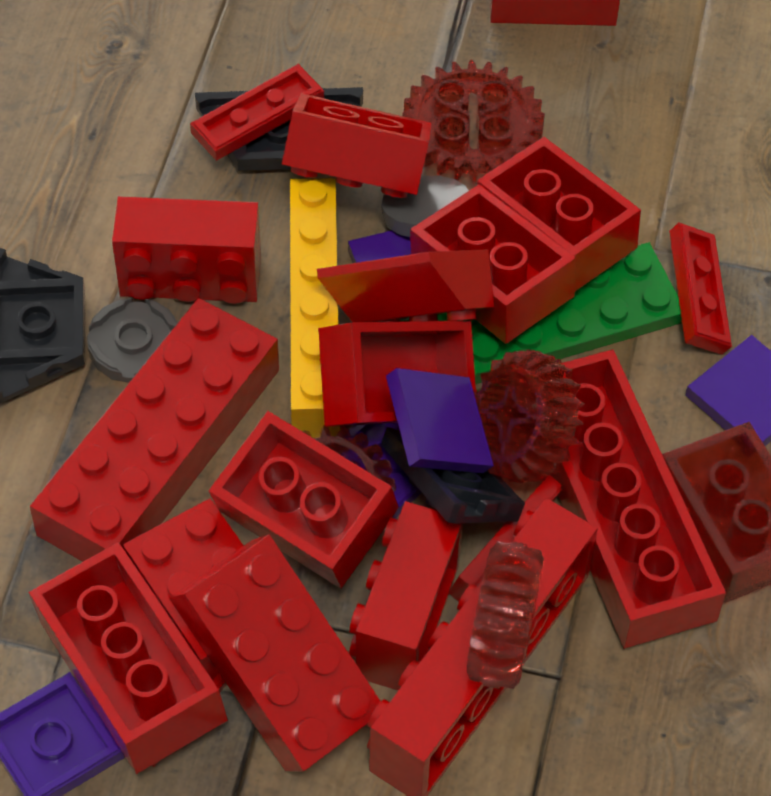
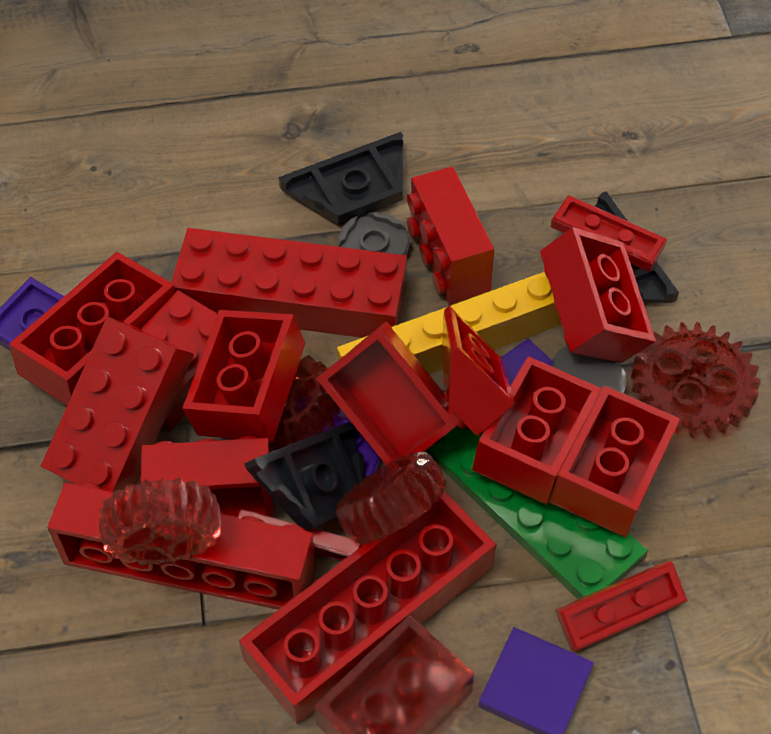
camera: 70 degrees right, 0 degrees up
(439, 421) = (353, 436): dark purple tile -> none

